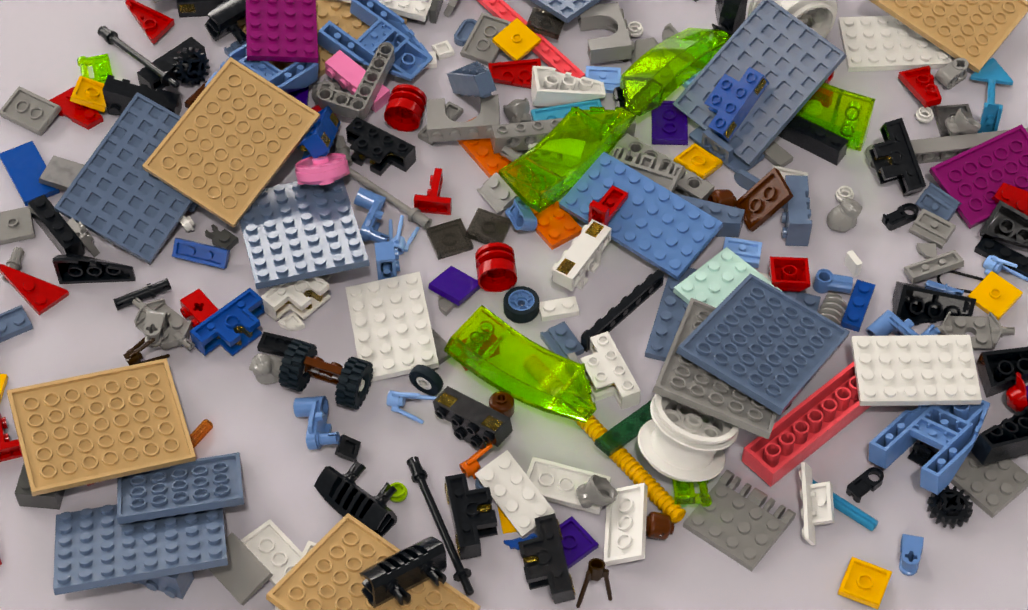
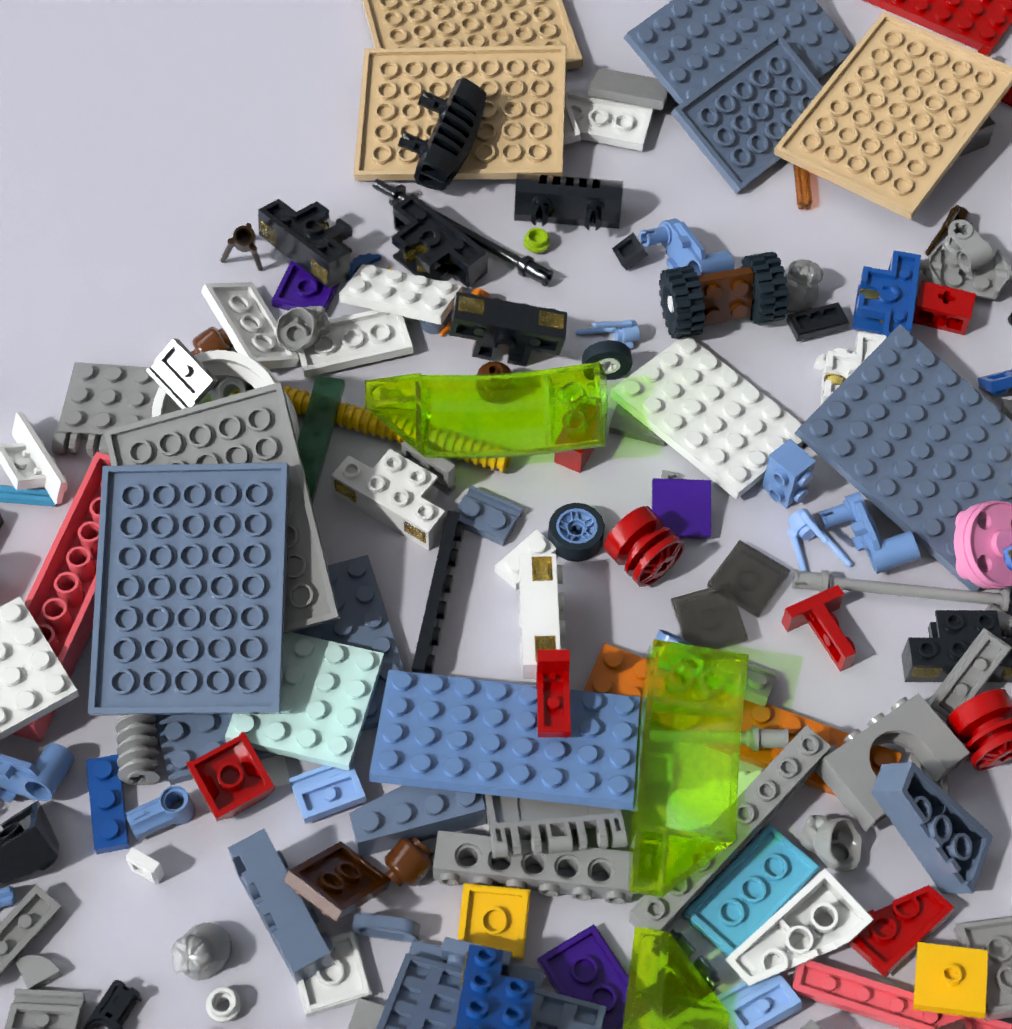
camera: 145 degrees right, 5 degrees up
(392, 129) = (970, 673): none -> light grey tile
(708, 427) = (181, 374): none -> plate

